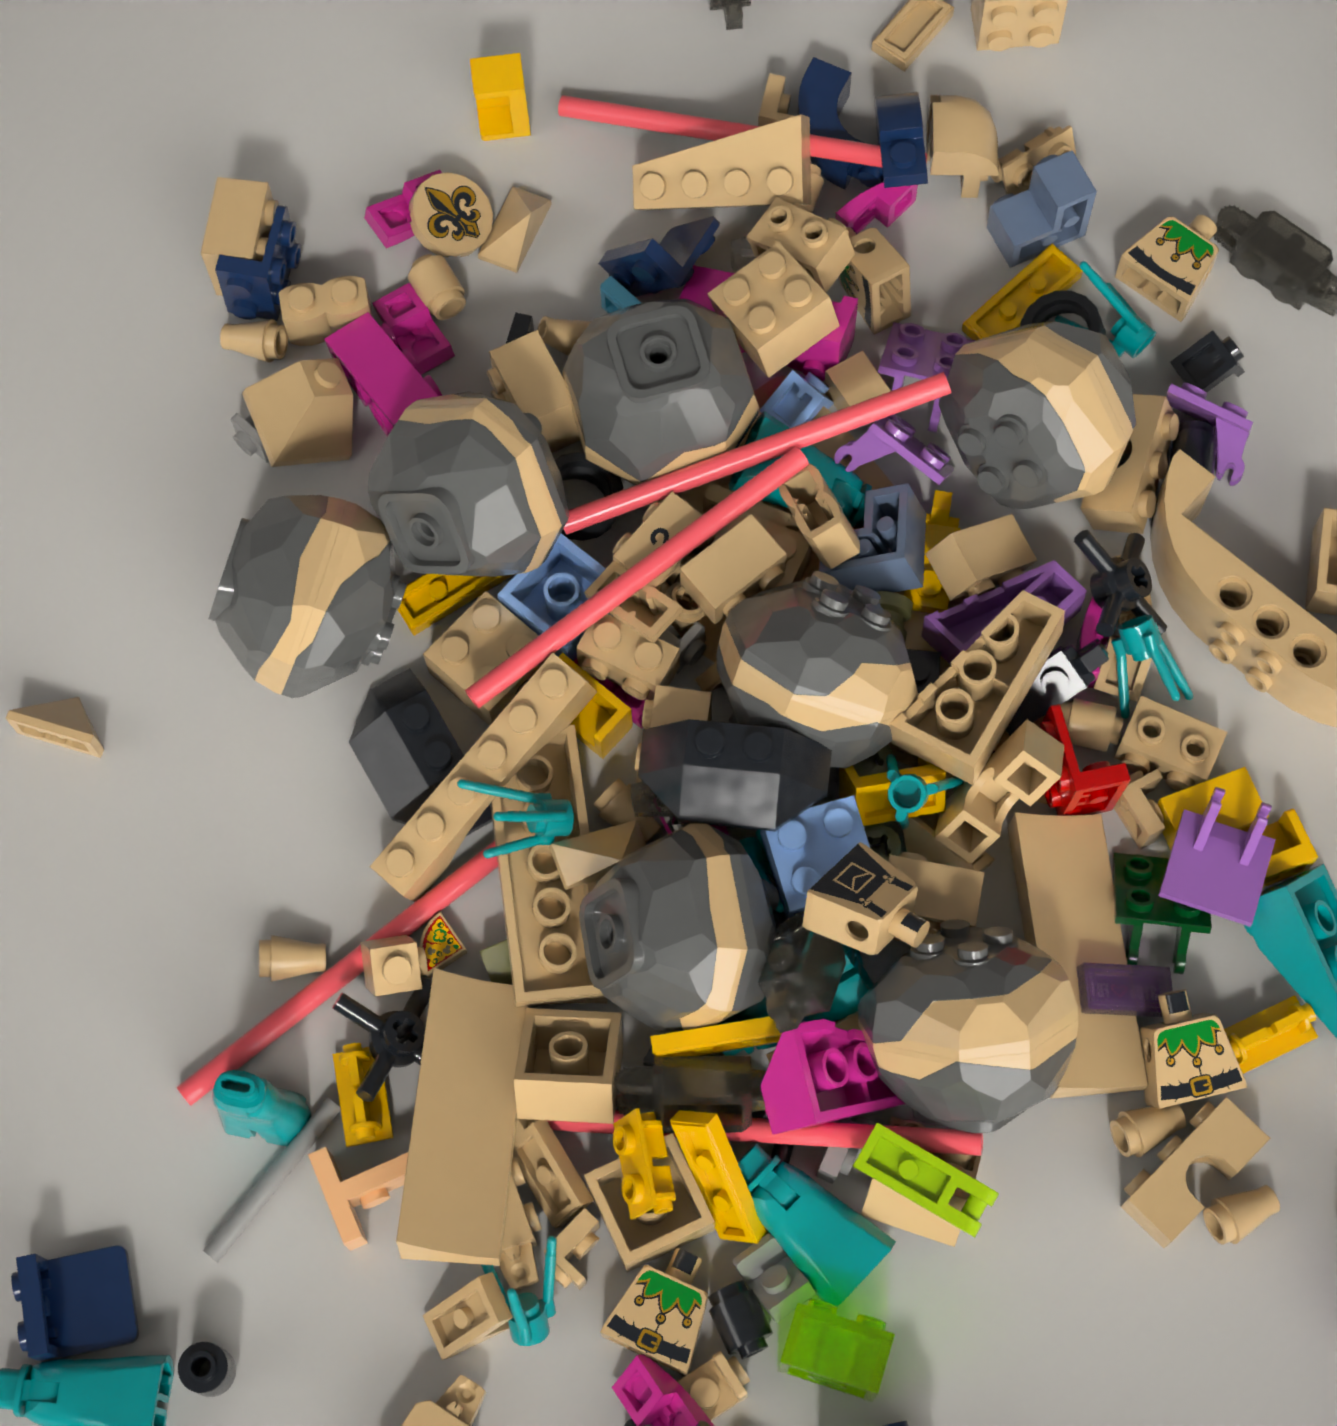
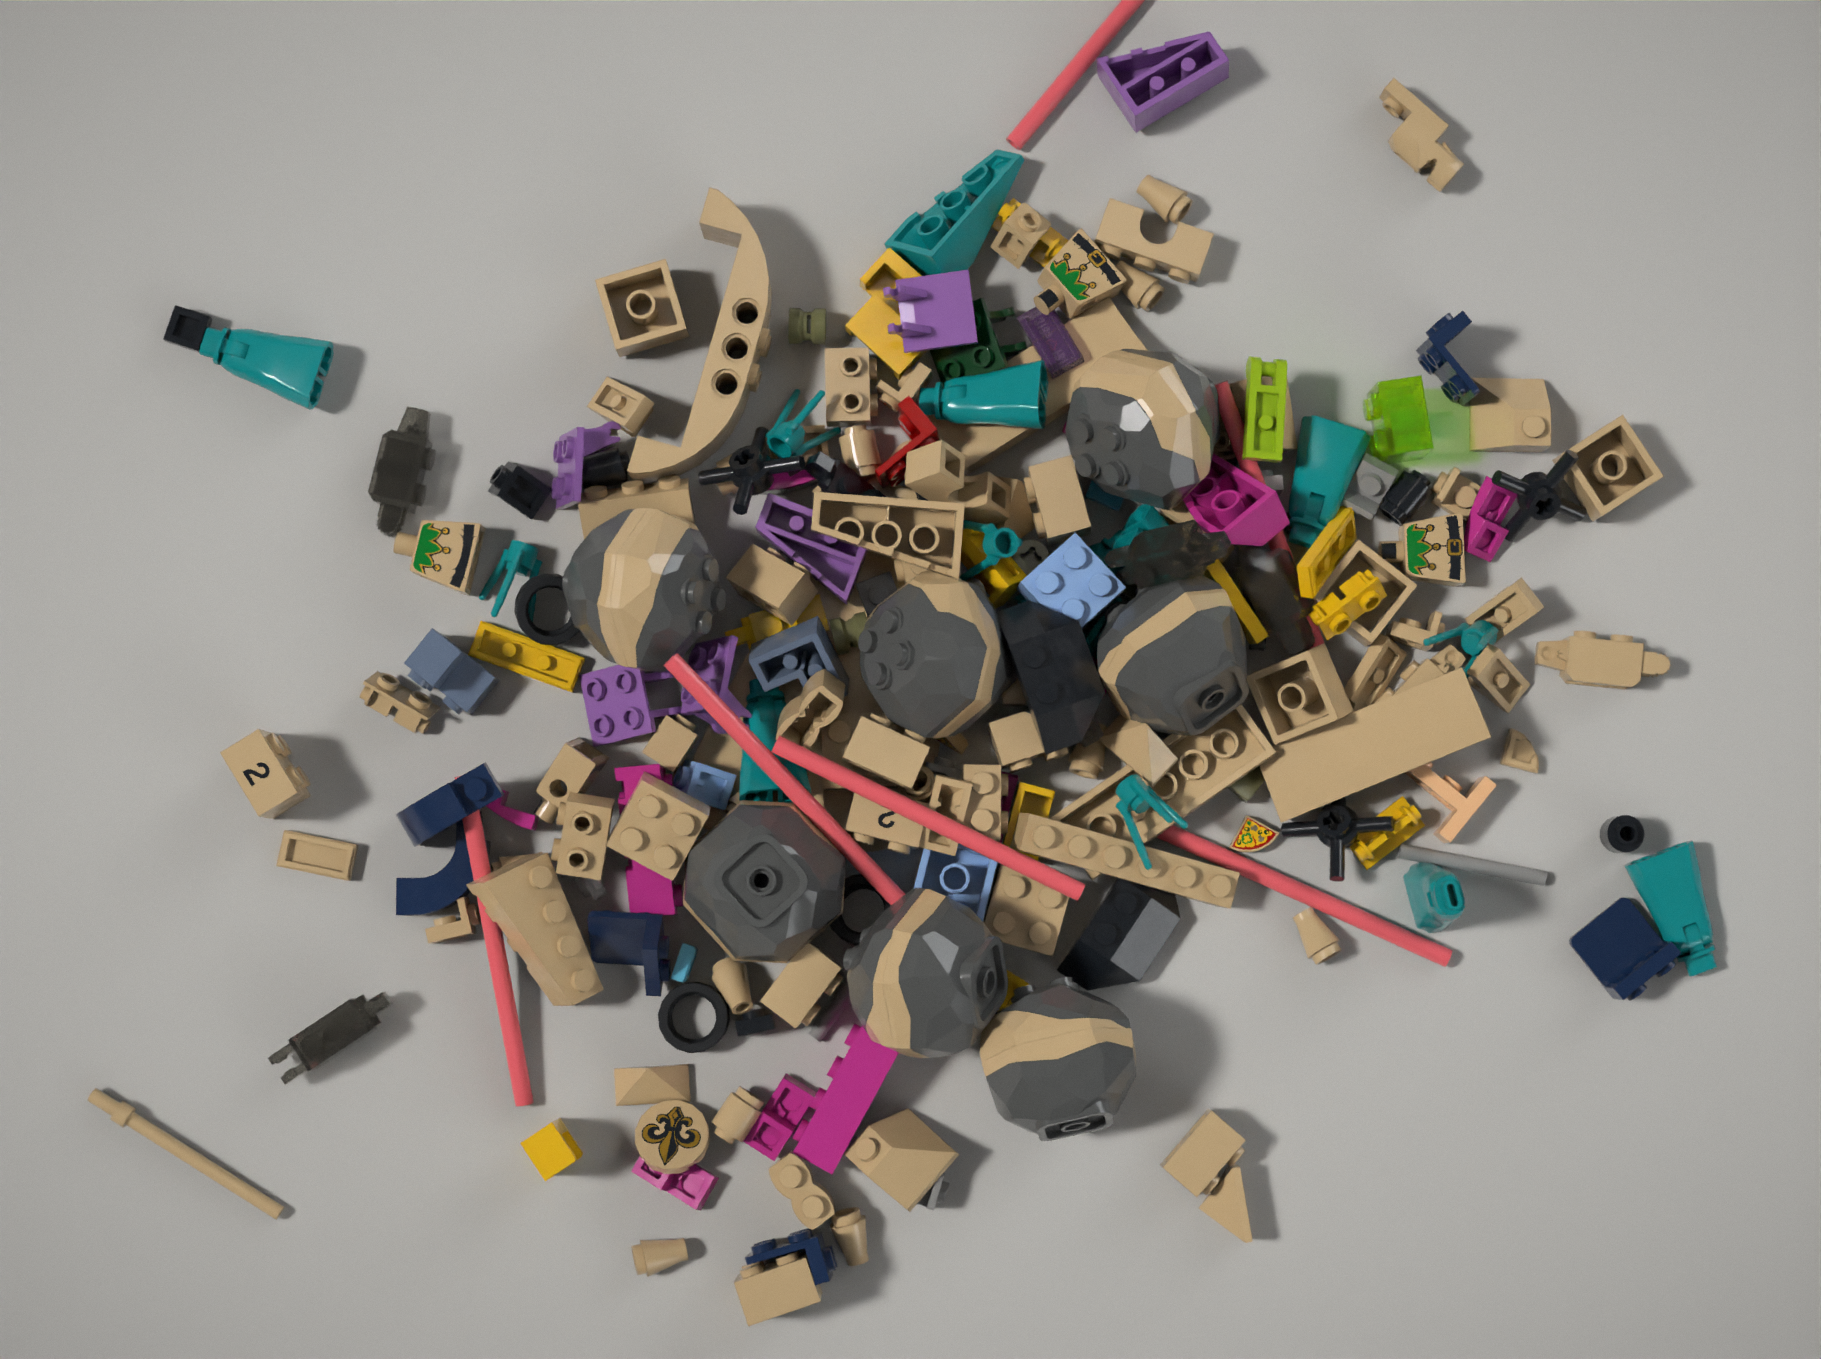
camera: 120 degrees left, 15 degrees up
(128, 718) = (1204, 1153): none -> tan brick
(343, 154) = (657, 1255): none -> tan cone
(369, 1304) = (1519, 752): none -> tan tile
(393, 965) = (1289, 856): tan brick -> none
(543, 1371) = (1508, 608): none -> tan slope
(560, 261) = (666, 1024): none -> black tyre
(865, 904) = (1108, 528): tan torso -> none
(961, 141) = (418, 762): tan brick -> none
(1083, 887) = (998, 397): none -> teal piece
(1252, 504) = (621, 405): none -> tan slope
(1262, 734) = (799, 326): none -> olive wheel
(1271, 1013) = (1020, 235): none -> tan bracket

